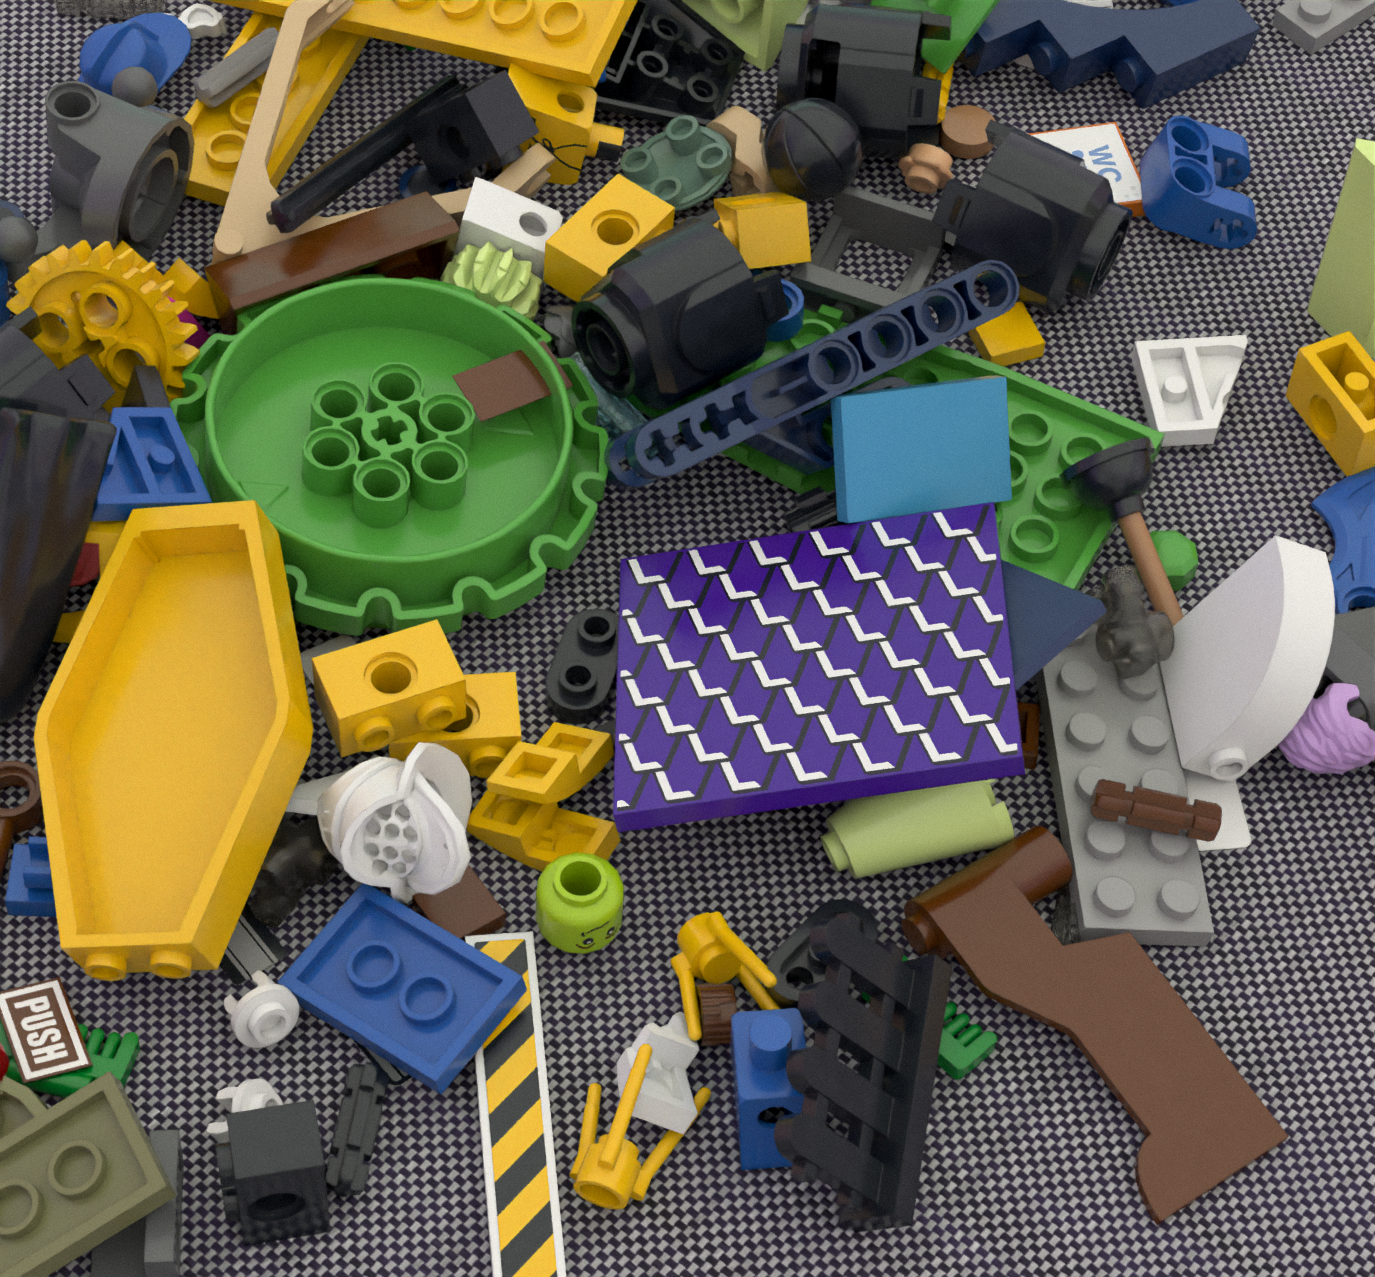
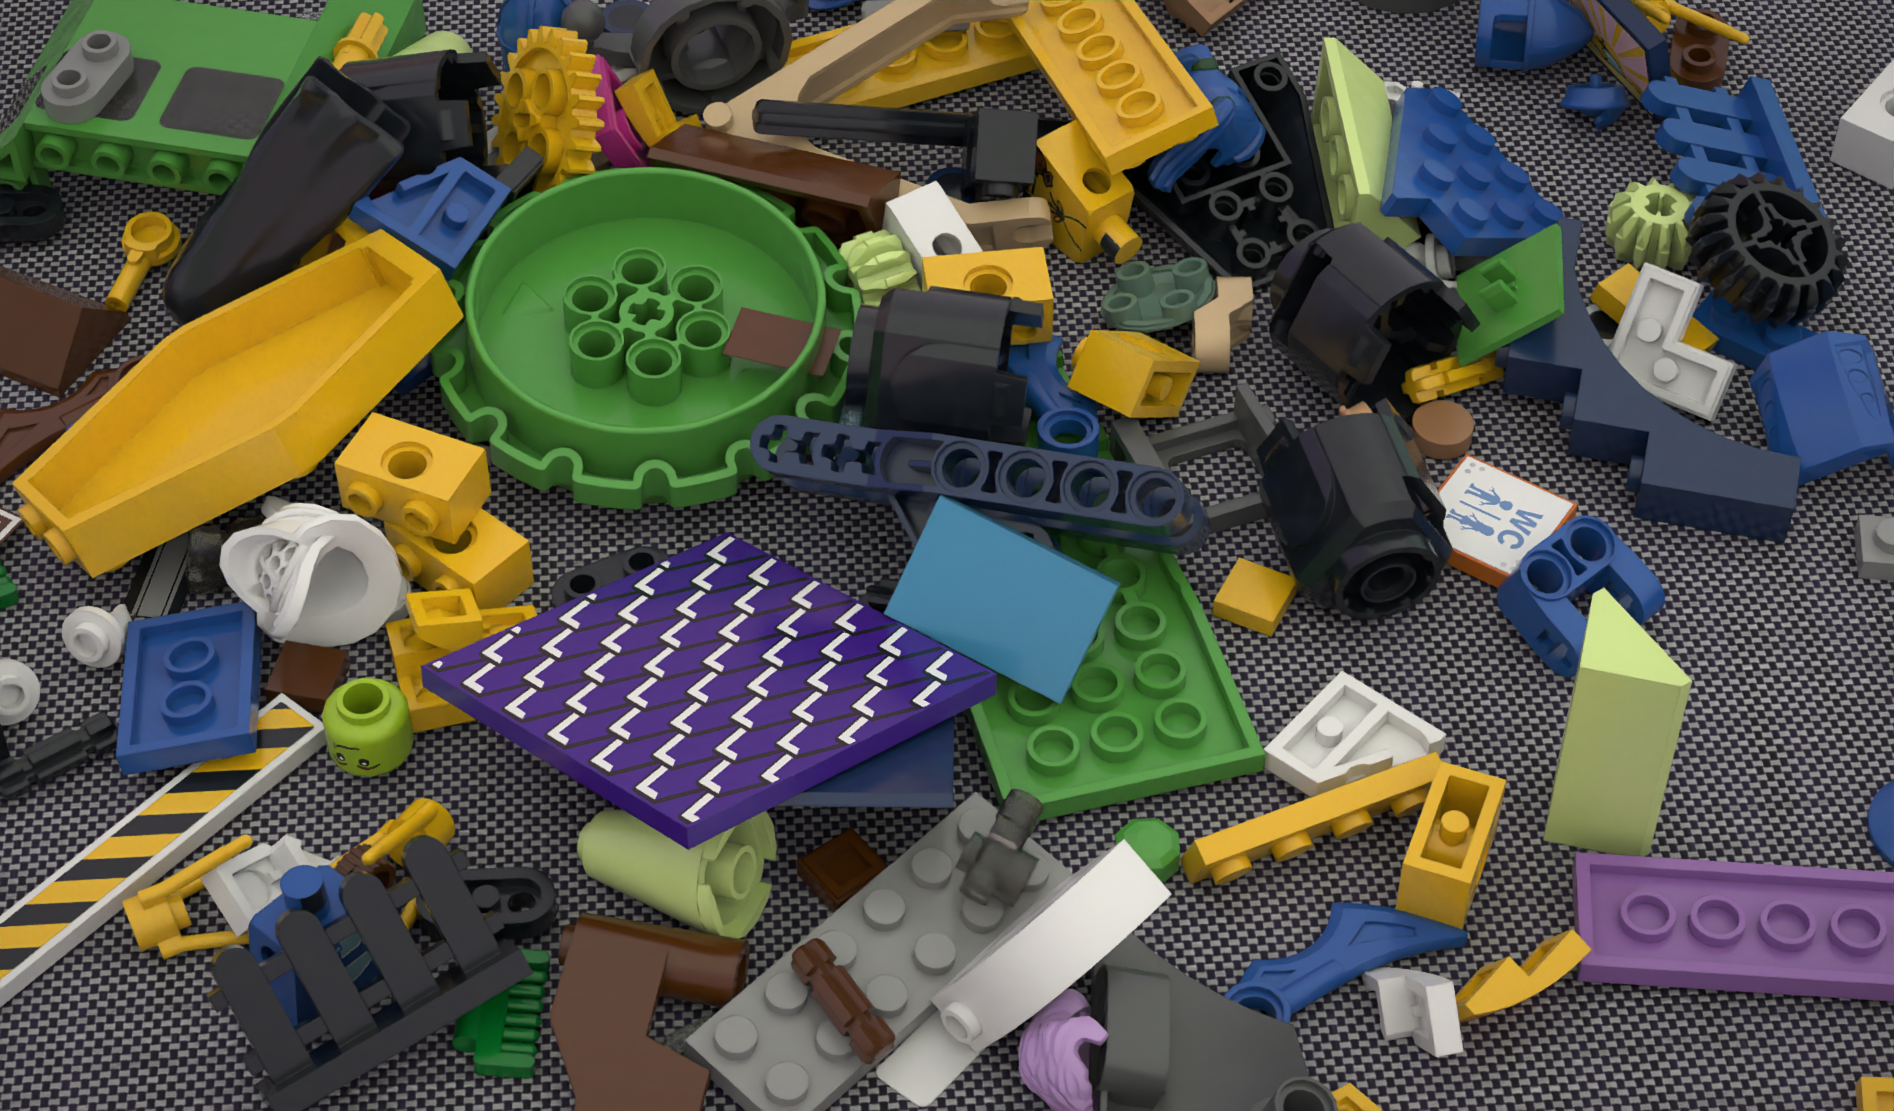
camera: 50 degrees right, 5 degrees down
(812, 149) = (1239, 337): black piece -> none
(1114, 483) = (1142, 744): black piece -> none
(1238, 464) = (1290, 829): none -> yellow plate

